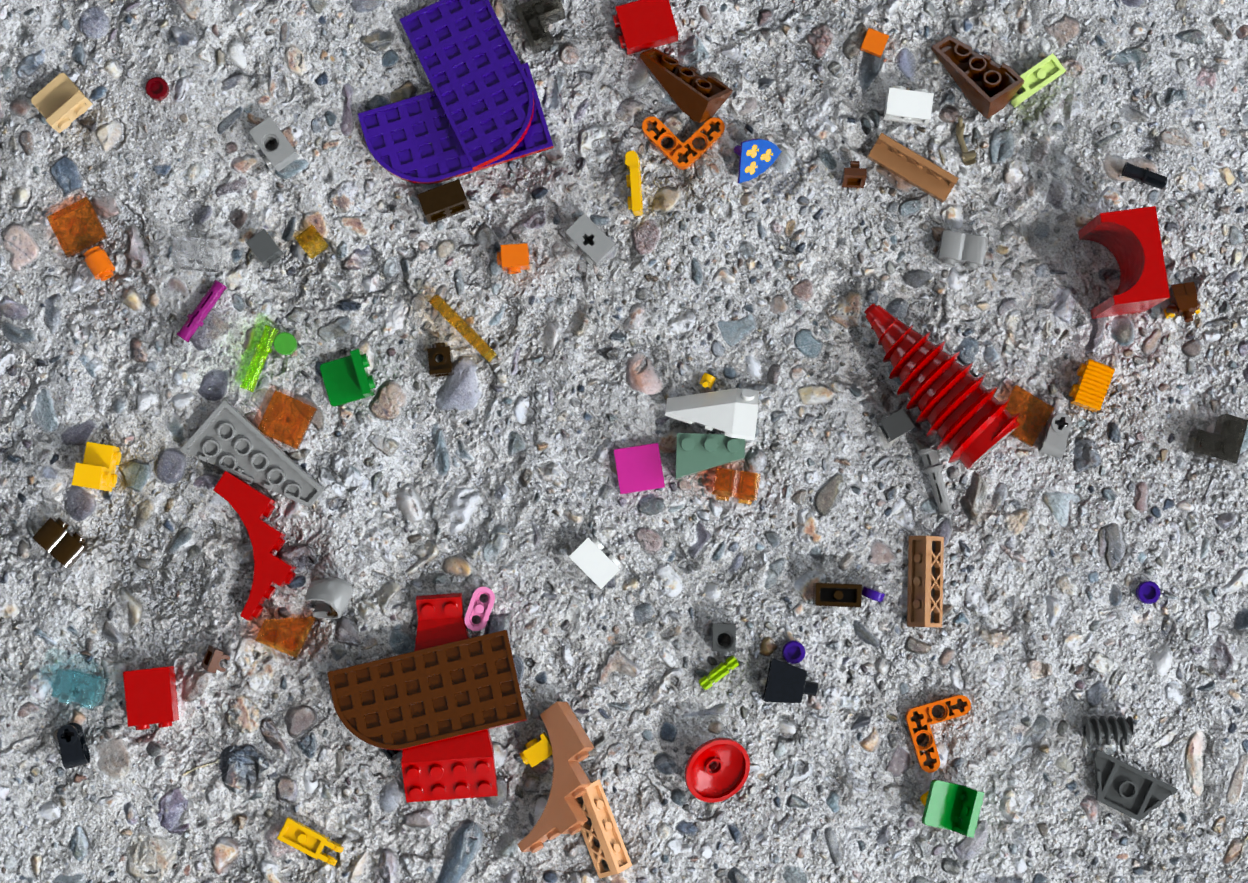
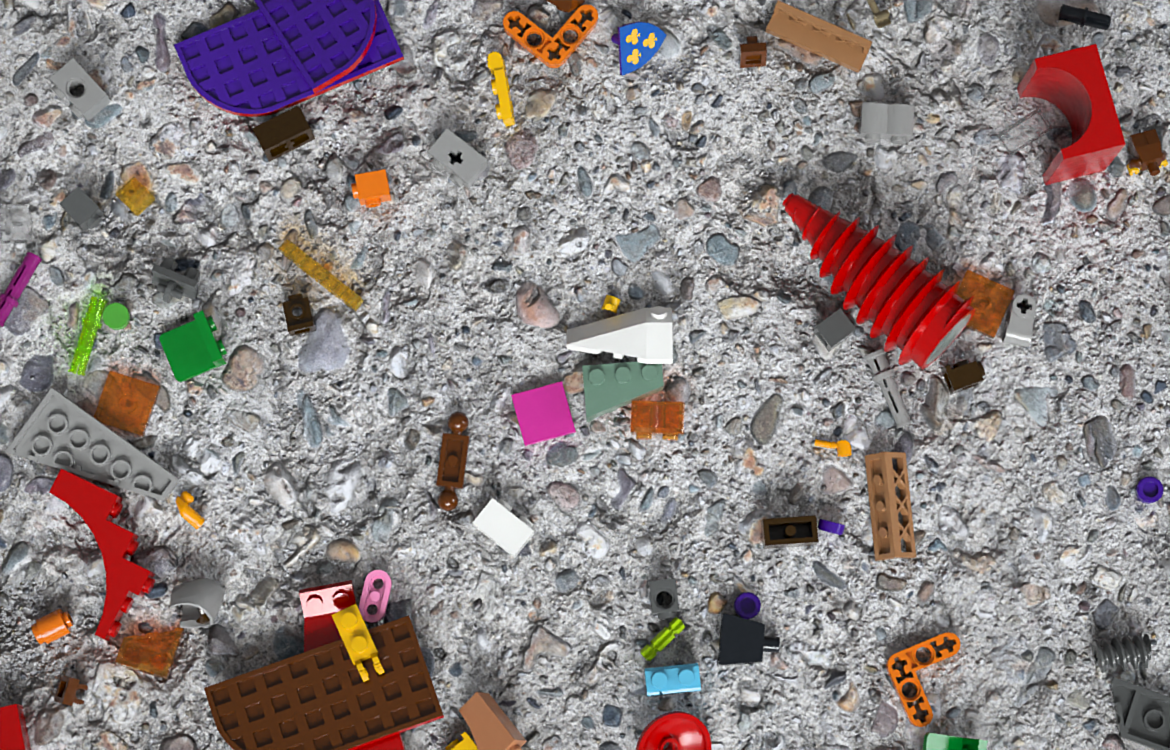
camera: 10 degrees left, 5 degrees down
(205, 603) = (52, 626): none -> orange brick
(328, 518) = (186, 512): none -> light orange arm
(336, 322) = (173, 283): none -> dark grey hips
(460, 646) = (357, 639): none -> yellow hinge
(558, 500) = (452, 461): none -> reddish brown plate
(723, 709) = (672, 679): none -> medium azure brick
(891, 526) = (843, 447): none -> light orange hand
(1001, 476) = (963, 376): none -> dark brown brick
(1080, 270) = (1024, 131): none -> clear tile
(1092, 385) = (1054, 260): light orange brick -> none

